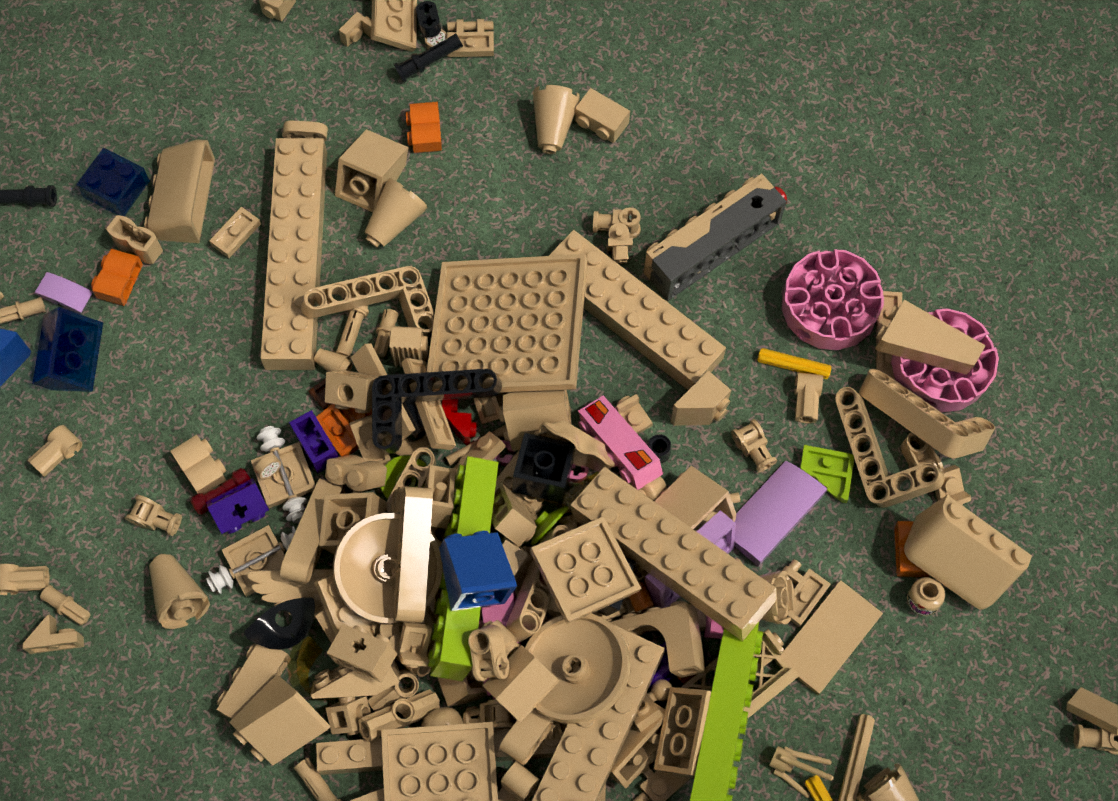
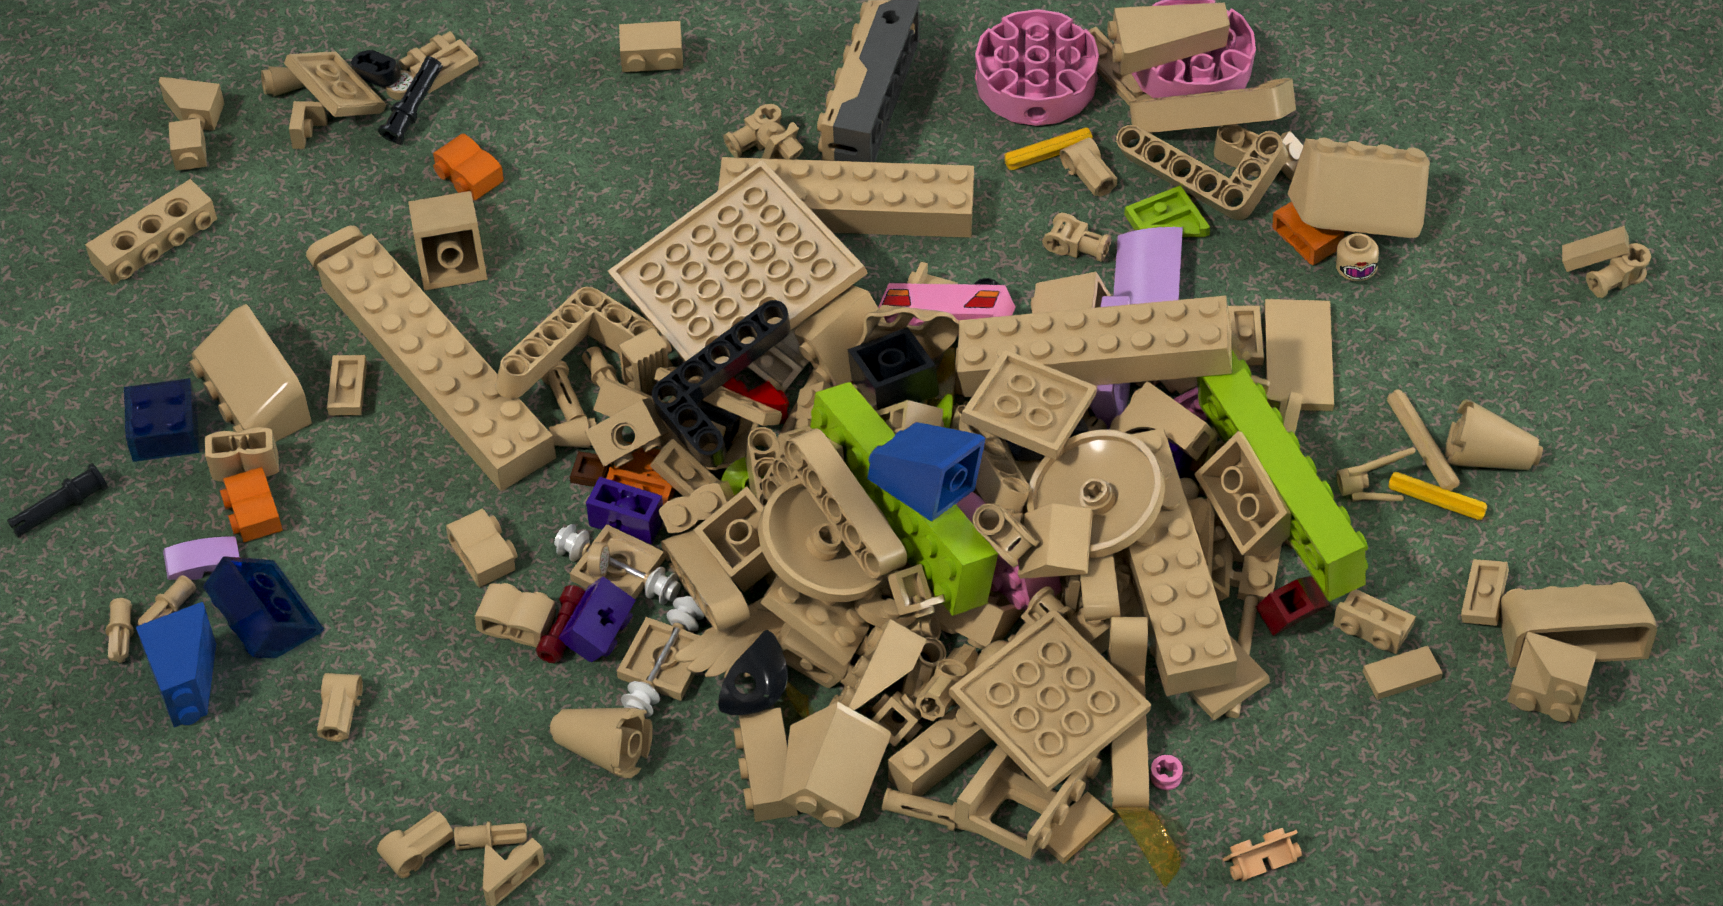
camera: 35 degrees left, 15 degrees down
(151, 515) = (507, 692): tan connector -> none
(200, 43) = (151, 232): none -> tan brick
(217, 403) = (481, 547): none -> tan brick
(362, 652) = (871, 626): tan brick -> none
(393, 213) = (511, 257): tan cone -> none
(553, 116) = (600, 73): tan cone -> none
(641, 599) = (1097, 418): reddish brown tile -> none
(702, 402) = (996, 227): tan slope -> none

